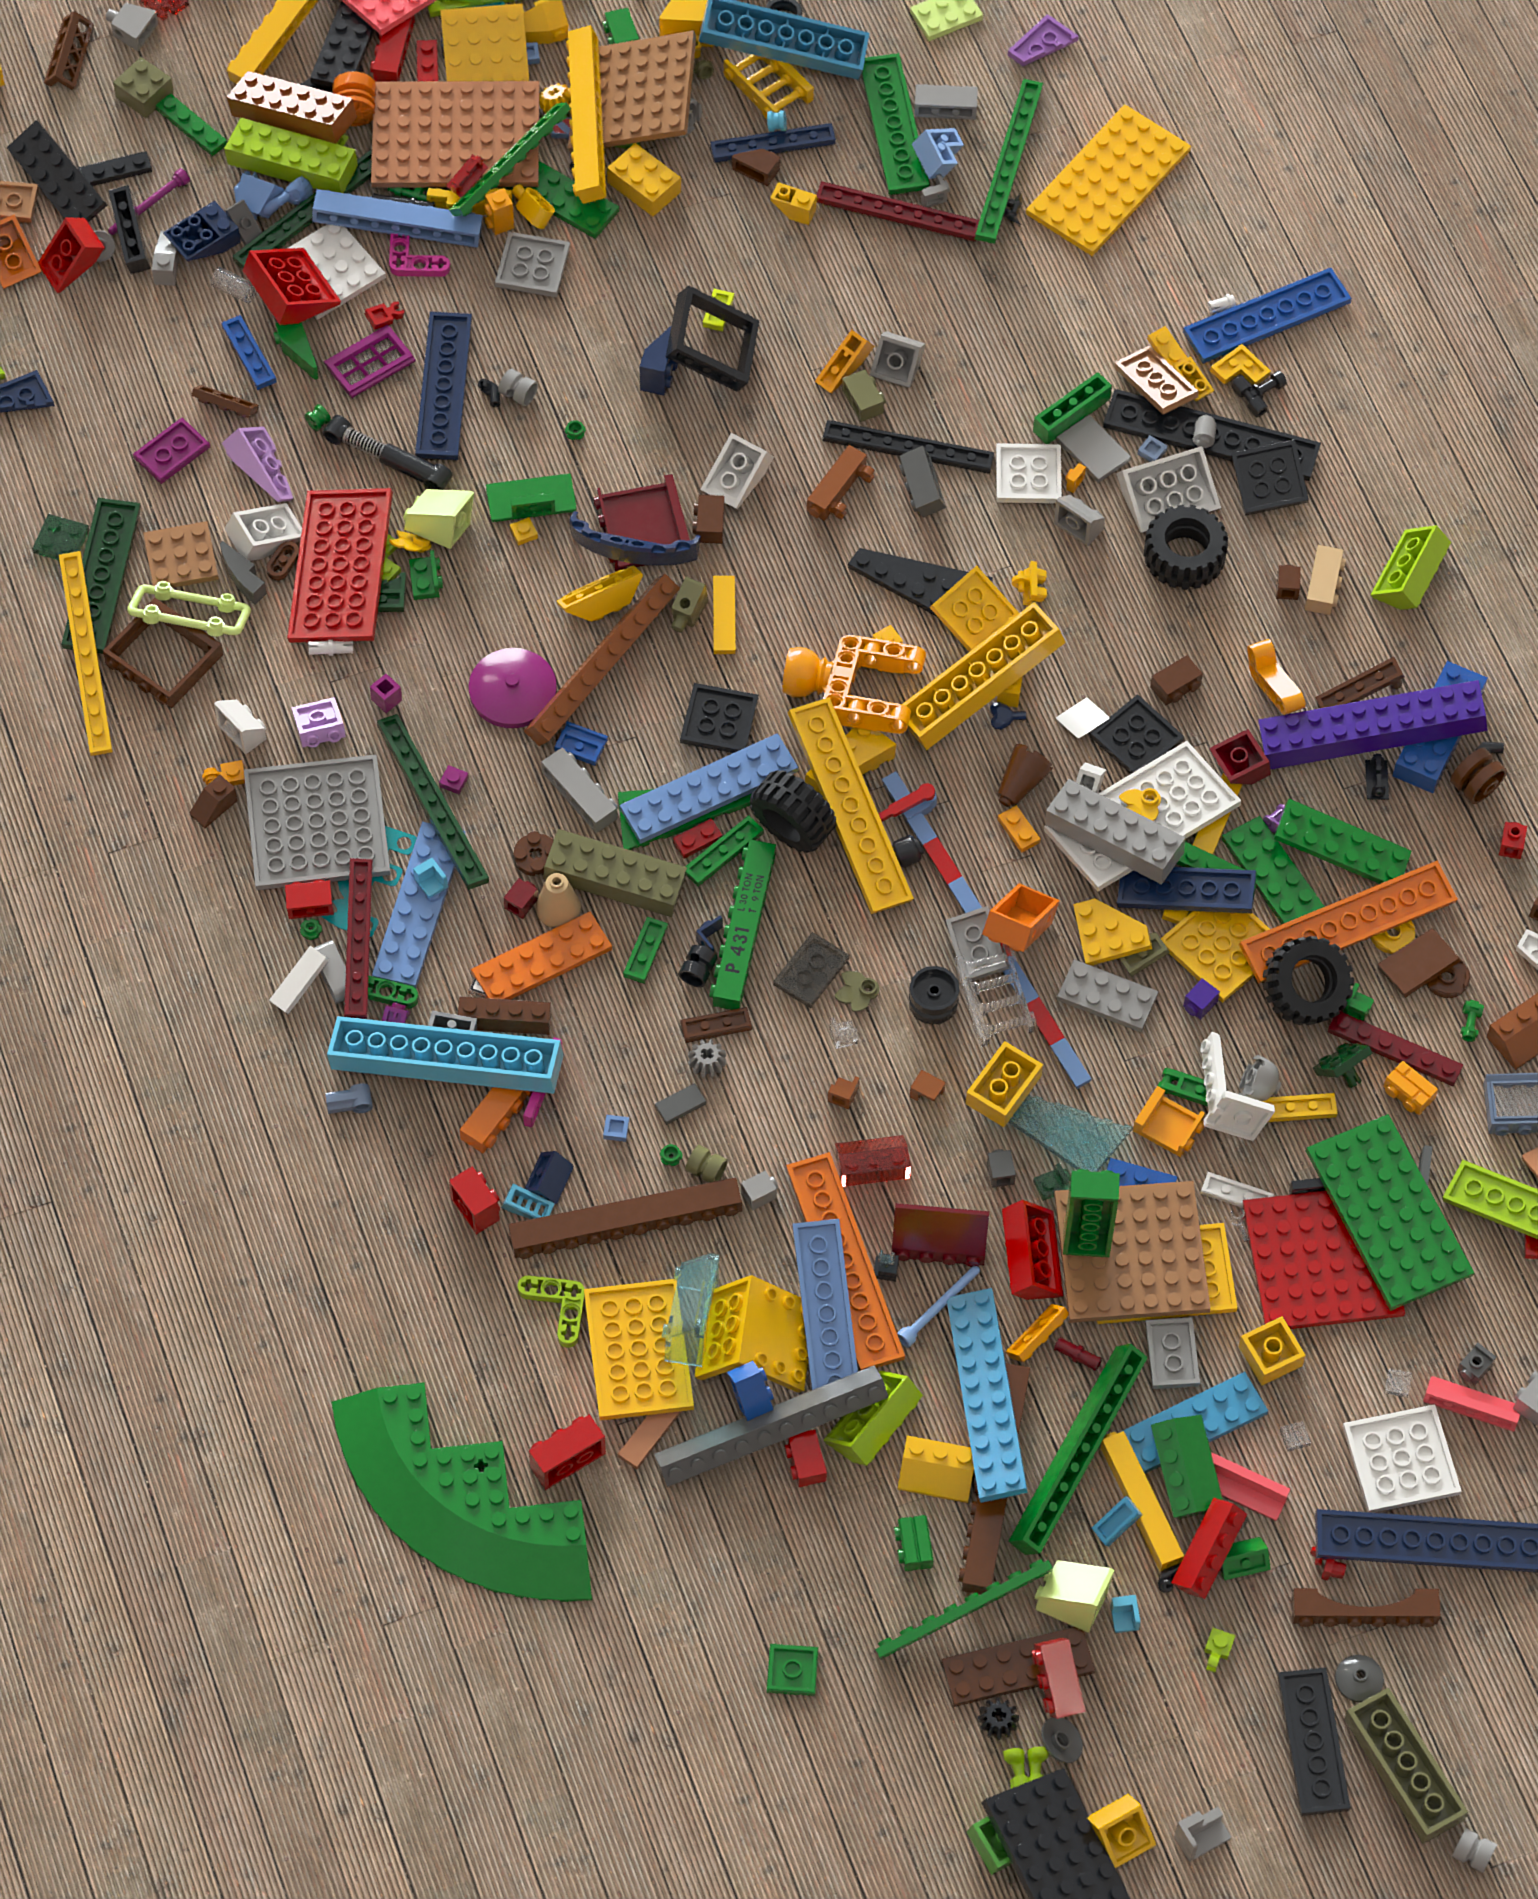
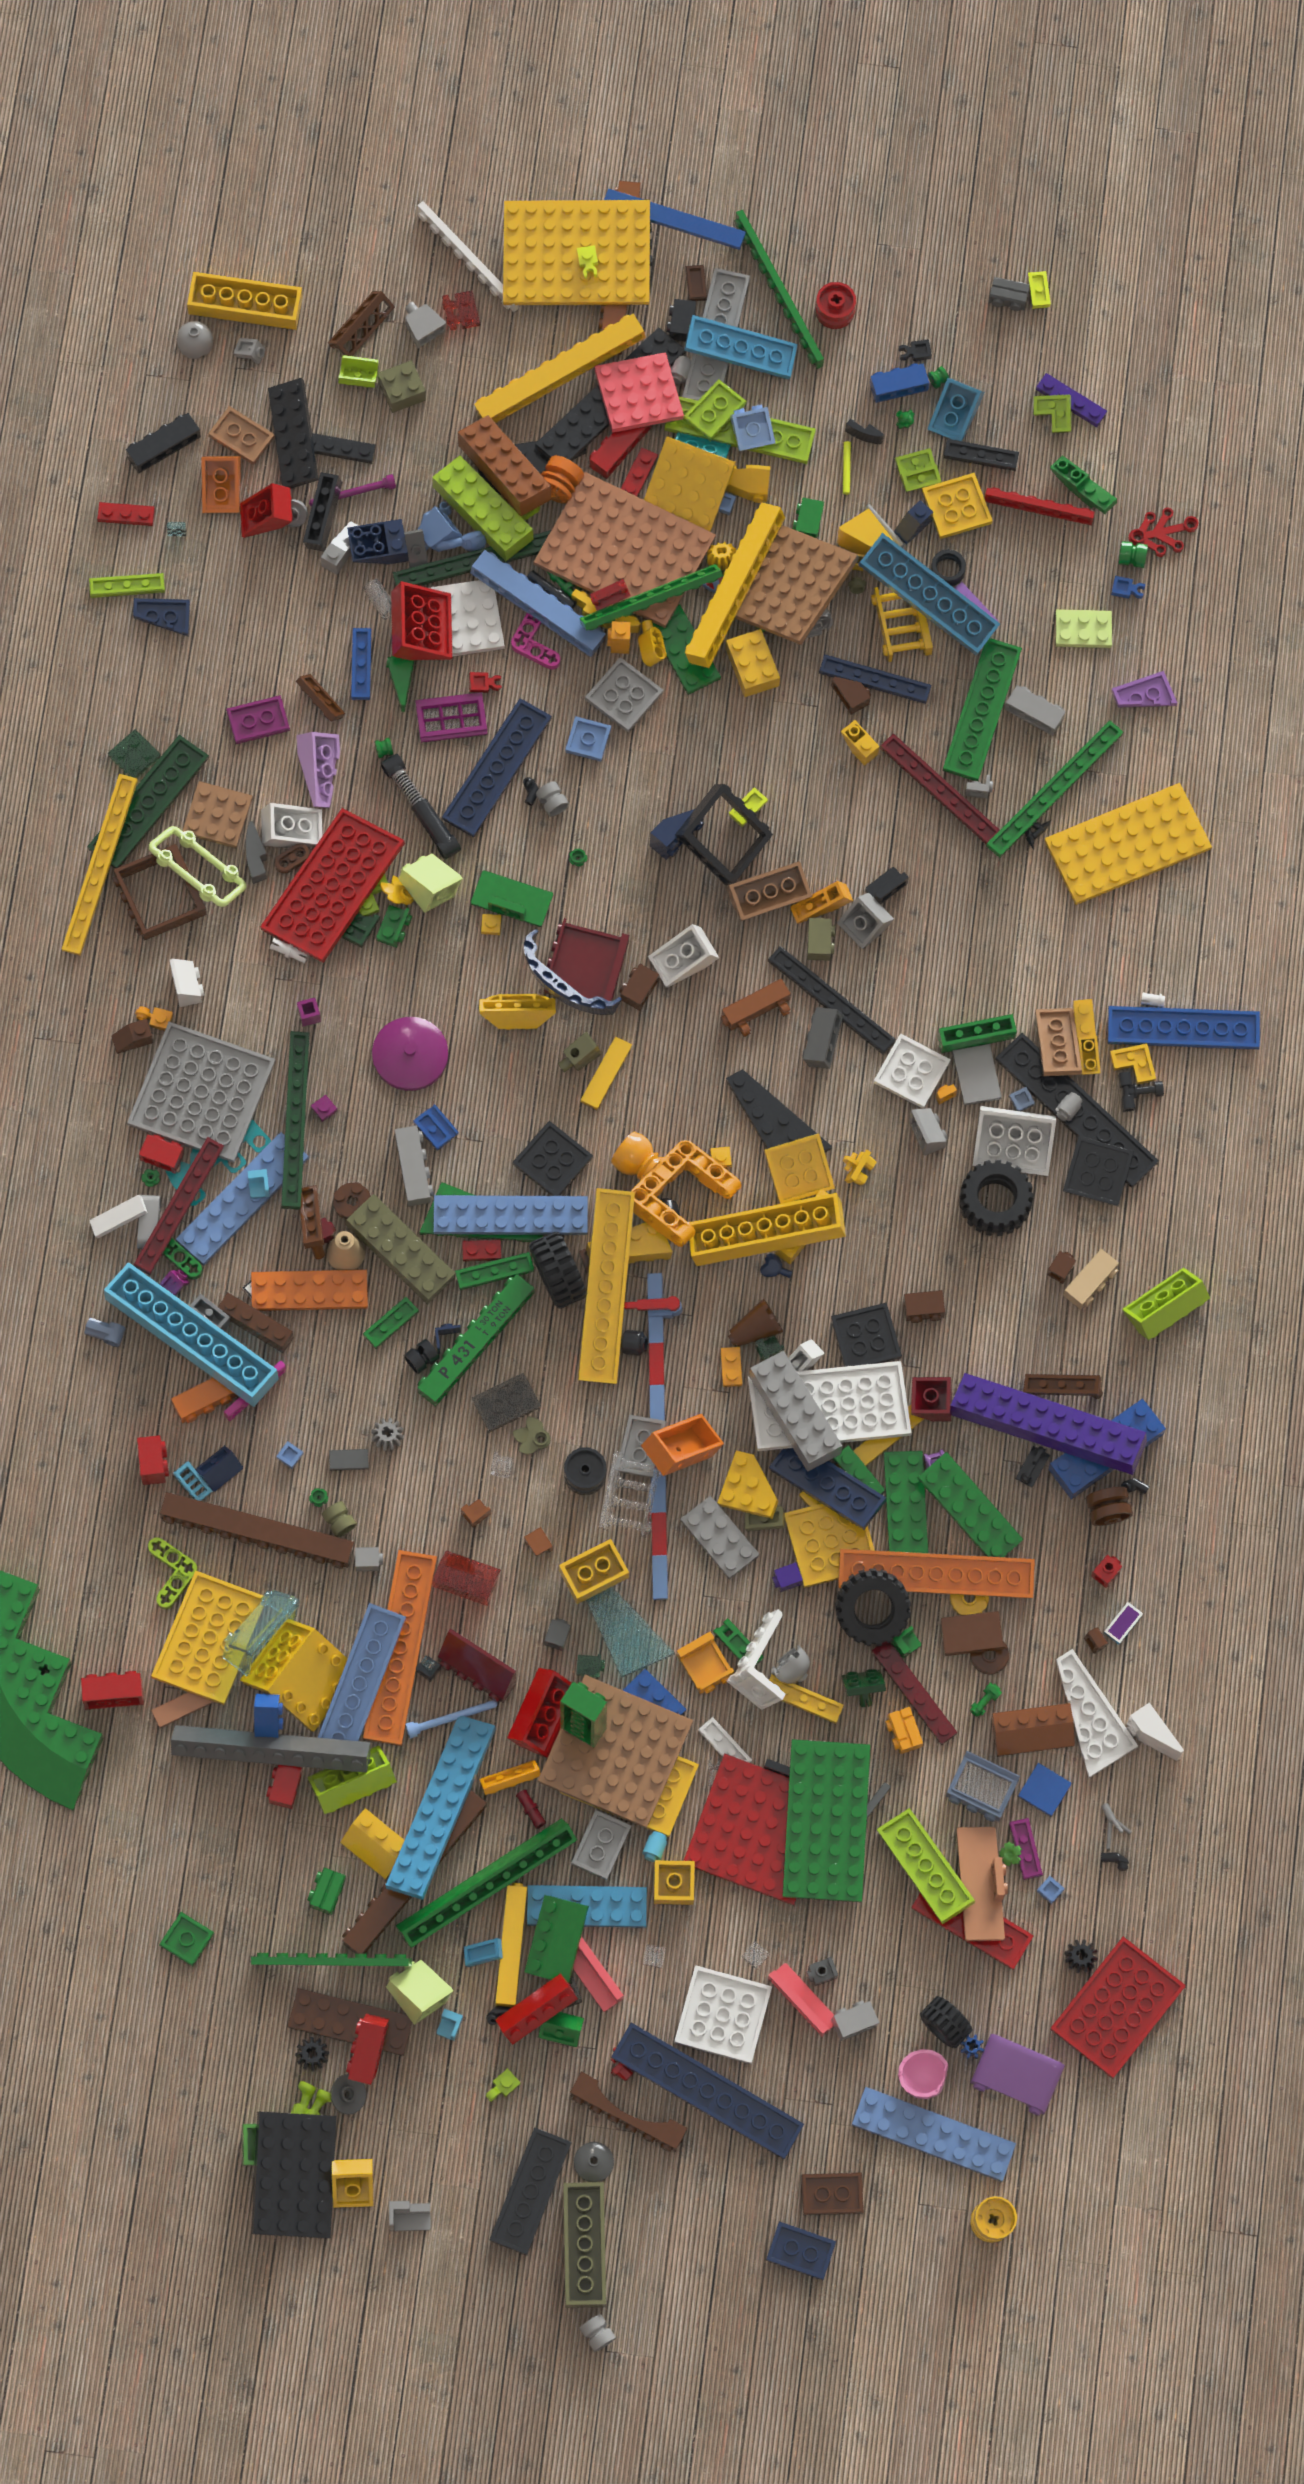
camera: 25 degrees right, 10 degrees up
(91, 92) = (358, 371): none -> lime bracket
(191, 124) = (423, 437): green plate -> none
(318, 722) = (246, 1010): lavender plate -> none
(510, 889) = (312, 1221): none -> reddish brown piece
(520, 319) = (588, 739): none -> medium blue plate
(601, 660) = (489, 1066): dark orange brick -> none
(716, 1025) = (411, 1409): reddish brown tile -> none
(776, 120) = (886, 663): medium azure wheel -> none
(787, 372) = (769, 891): none -> medium nougat slope
(899, 317) = (887, 885): none -> black panel
(937, 150) = (997, 752): light blue brick -> none
(1045, 793) = (768, 1347): none -> clear green panel
(1082, 718) = (833, 1300): white sticker -> none
(1138, 802) = (828, 1397): yellow plate -> none
(1228, 1326) = (655, 1846): none -> medium azure brick
(1273, 679) = (997, 1345): light orange beam -> none

